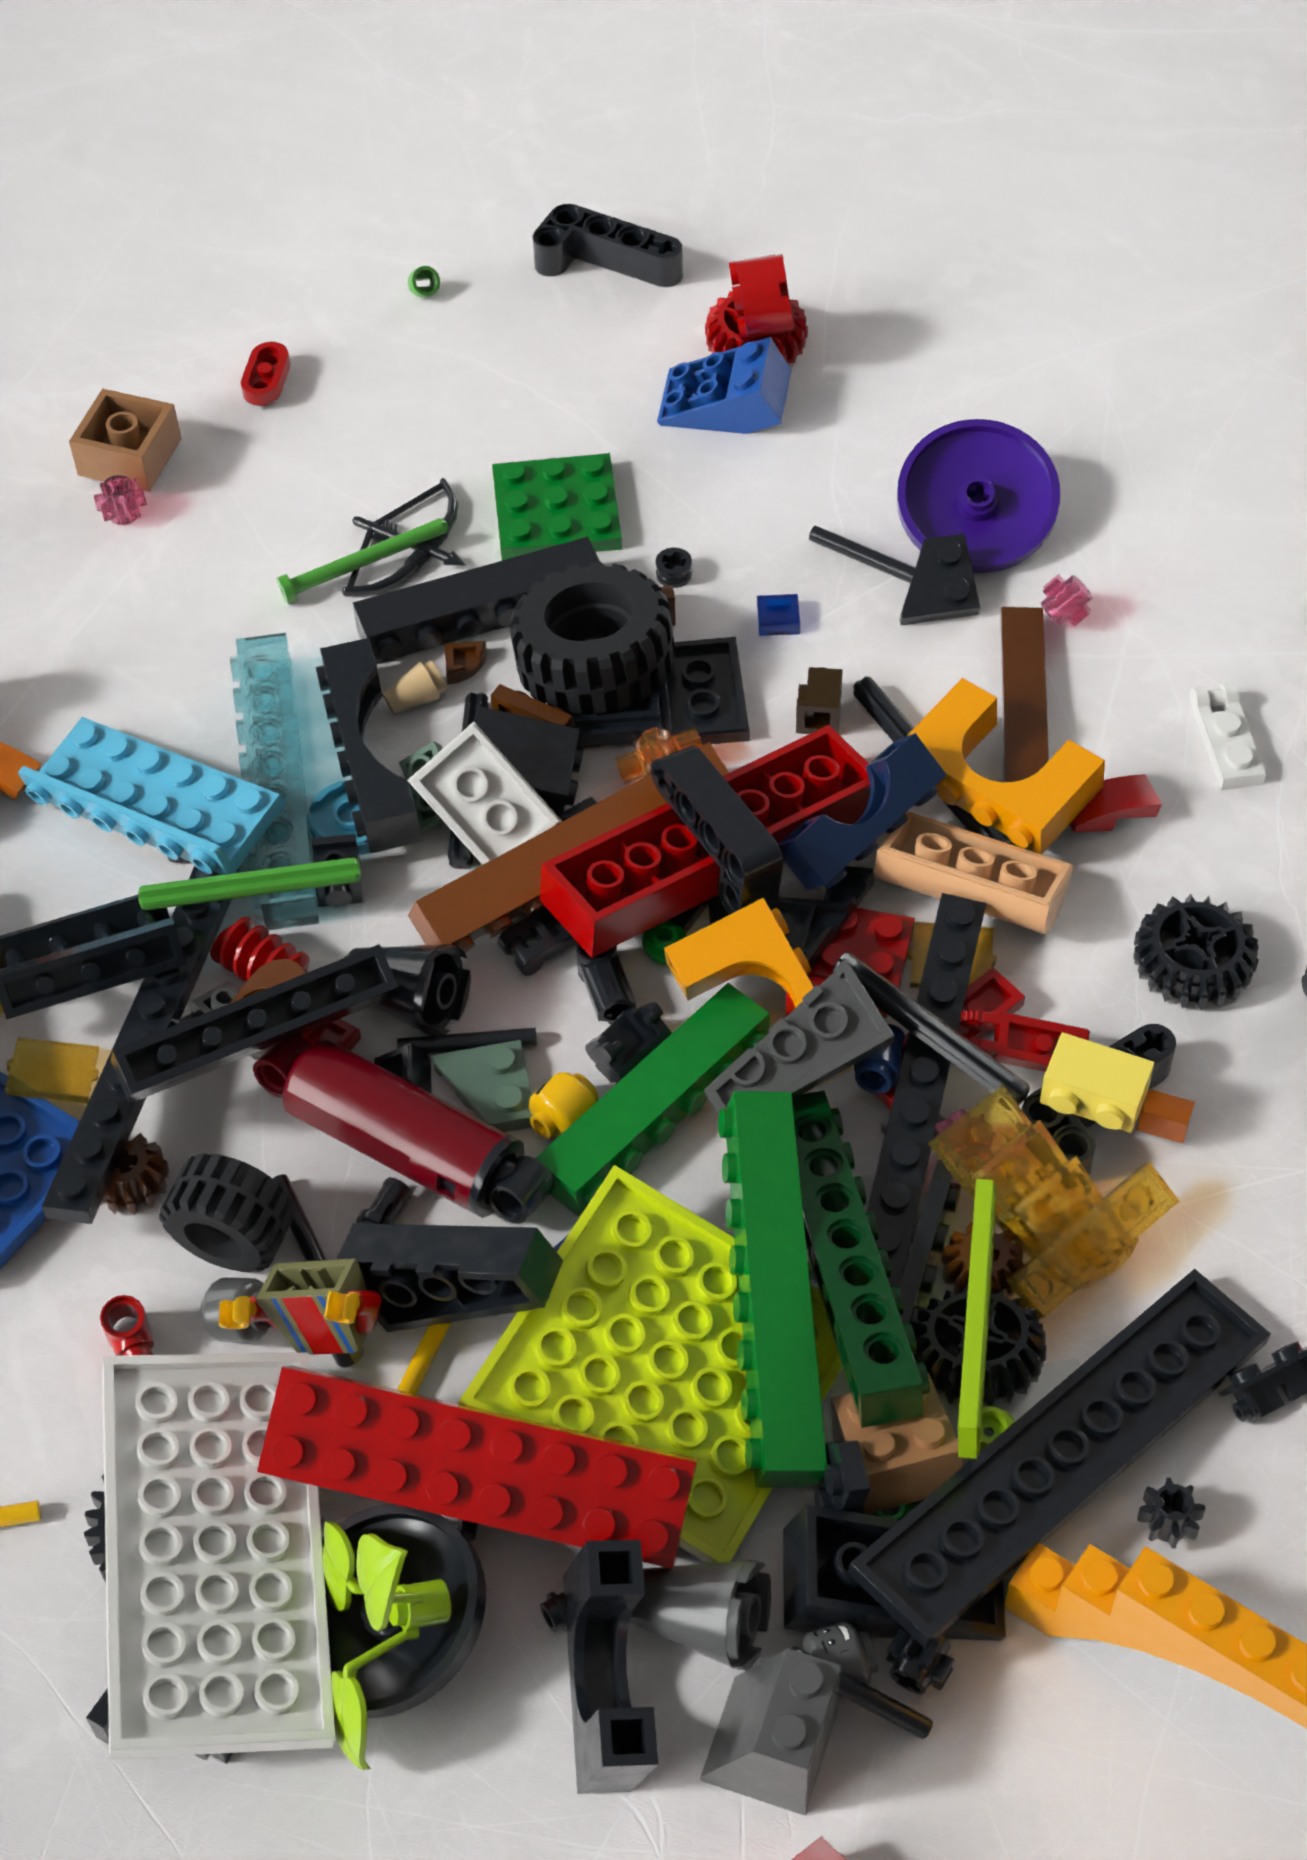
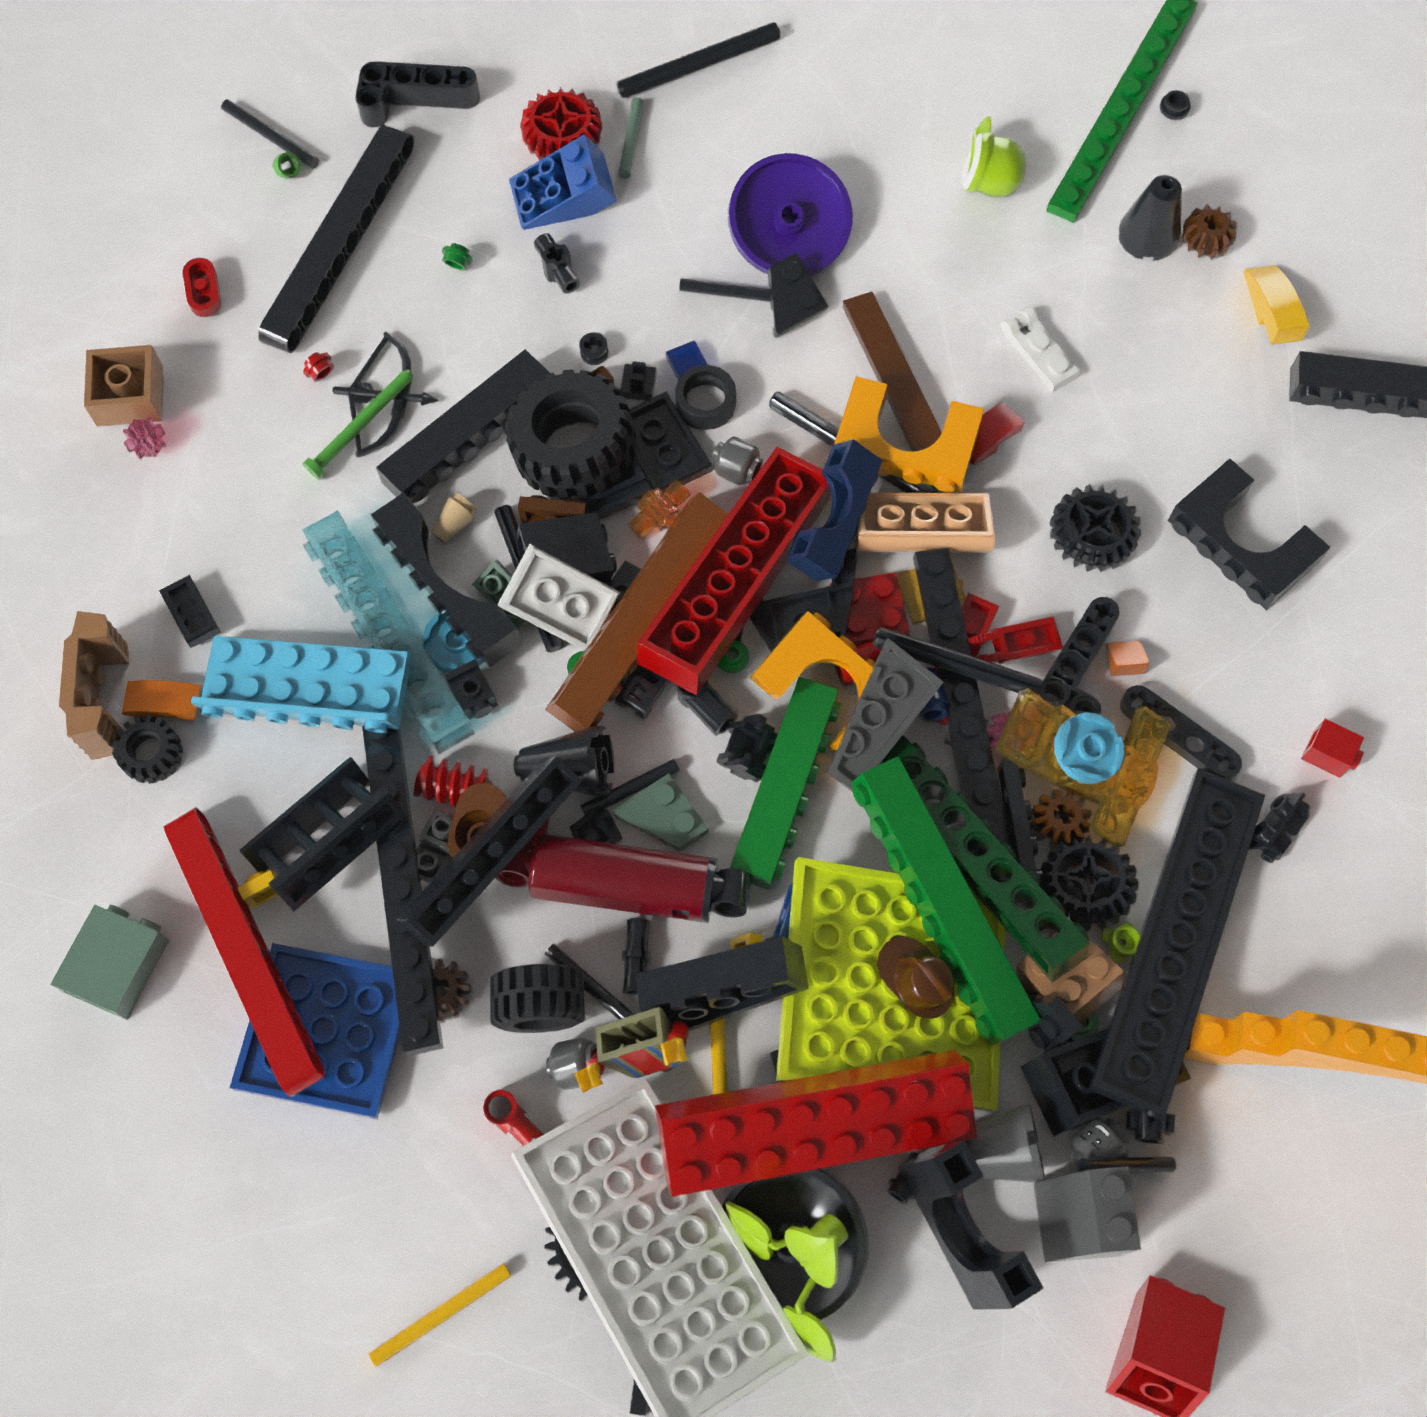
camera: 25 degrees left, 15 degrees up
(52, 1070) = (342, 932): clear yellow piece -> none
(72, 686) = (190, 611): none -> black plate
(249, 883) = (419, 731): bright green axle -> none
(348, 488) = (318, 366): none -> red plate
(424, 248) = (269, 133): none -> black bar
(438, 369) = (336, 239): none -> black beam
(464, 660) = (475, 480): reddish brown tile -> none
(556, 503) = (481, 326): green plate -> none
(560, 1103) = (725, 814): yellow head -> none
(564, 426) = (456, 256): none -> green plate
(675, 466) = (556, 263): none -> black axle
(696, 1364) = (916, 977): none -> reddish brown piece
(708, 616) = (638, 381): none -> black tile
(724, 827) = (748, 560): black beam -> none
(761, 296) = (565, 102): red brick -> none
(772, 633) = (711, 376): none -> black tyre
(775, 727) = (737, 460): none -> dark grey head
(819, 700) = (753, 421): dark brown brick -> none
(834, 367) = (631, 137): none -> sand green bar
(957, 310) = (698, 60): none -> black axle
(977, 1320) = (1093, 873): lime tile -> none
(1047, 1179) = (1089, 748): none -> medium azure tile
(1066, 600) = (888, 280): clear pink gear -> none
(1096, 1082) = (1086, 661): light yellow brick -> none
(1177, 1524) = (1267, 946): black gear -> none
(1202, 1223) = (1185, 728): none -> black beam
(1263, 515) = (994, 163): none -> lime piece

